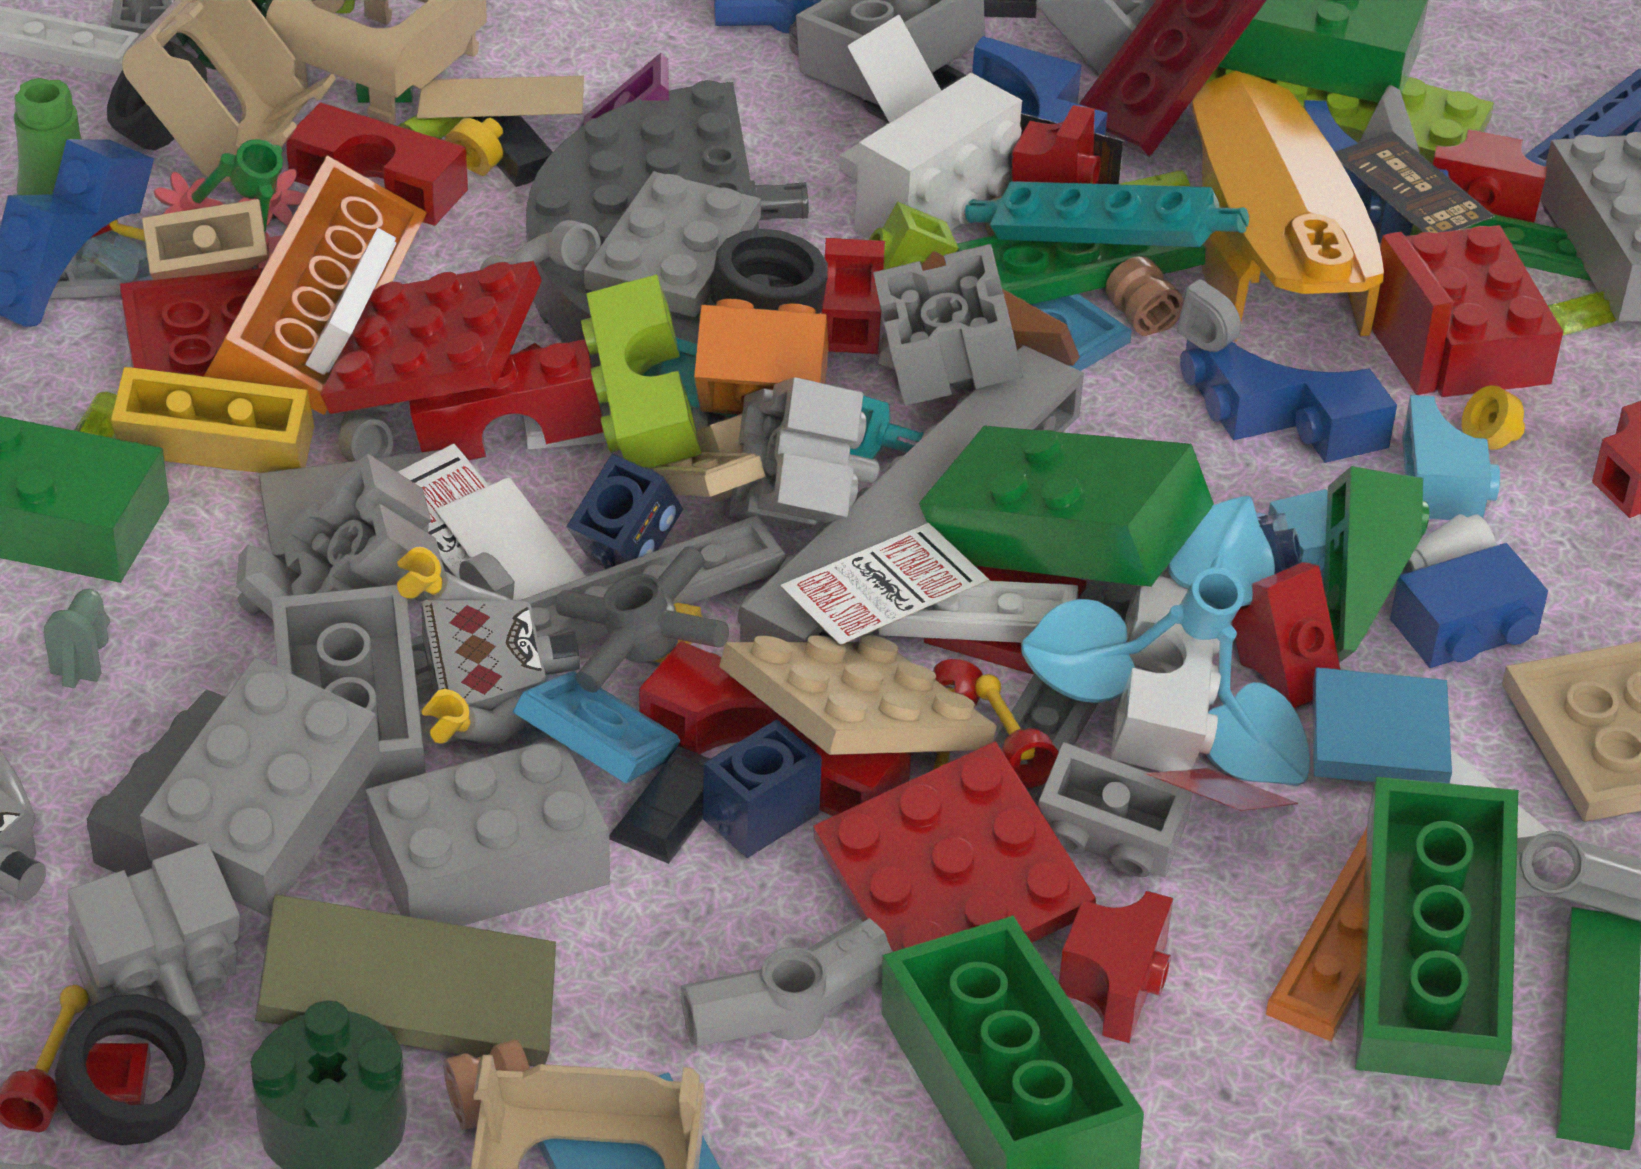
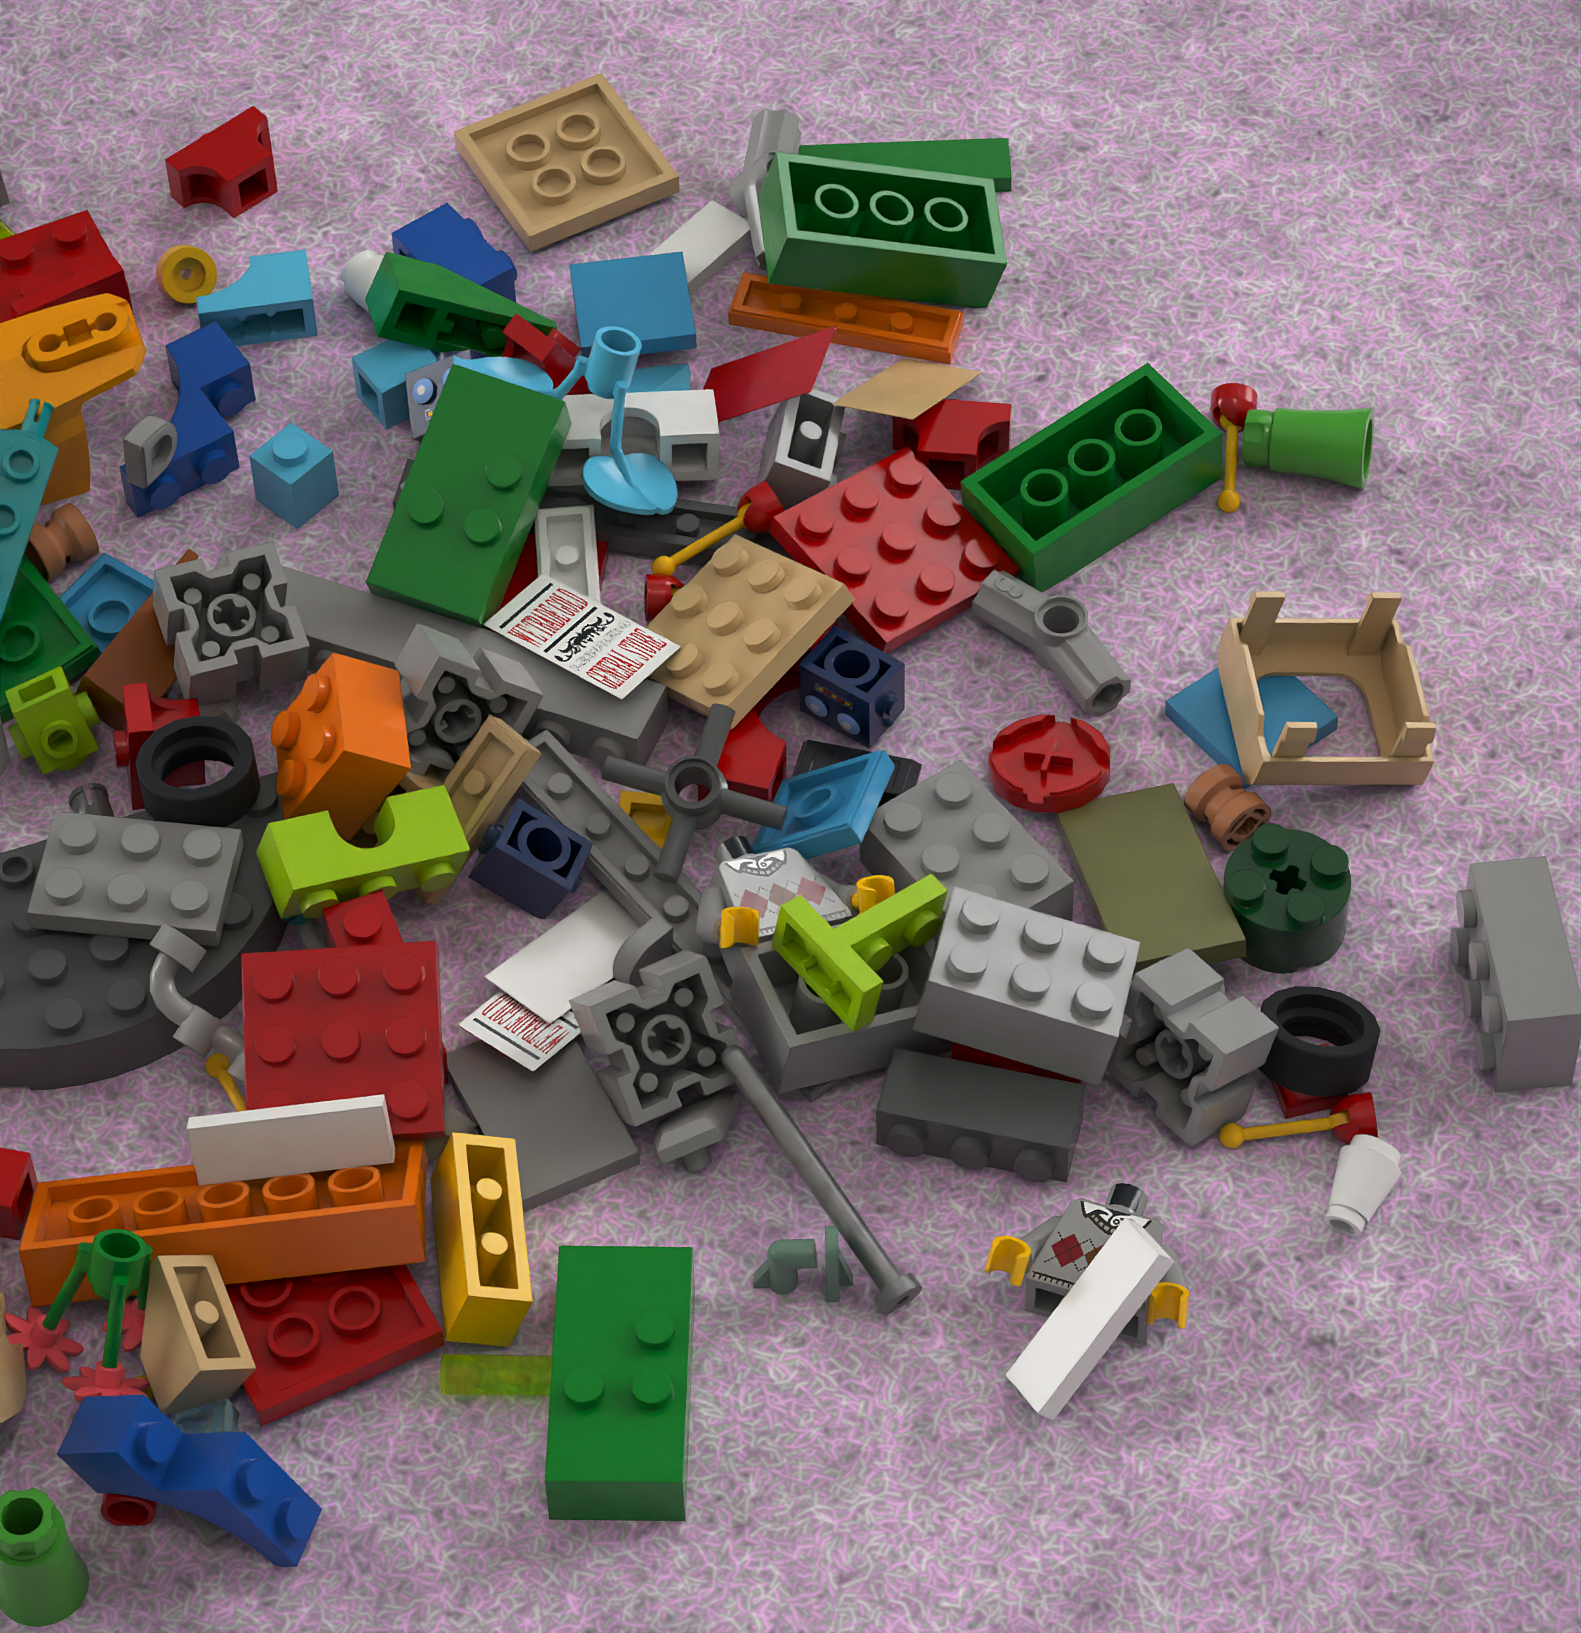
camera: 100 degrees left, 10 degrees up
(148, 649) = (894, 1288): none -> flat silver bar
(344, 631) = (844, 959): none -> lime bracket
(615, 949) = (1049, 764): none -> red tile
(1190, 920) = (907, 388): none -> tan sticker
(1198, 424) = (294, 475): none -> medium azure brick

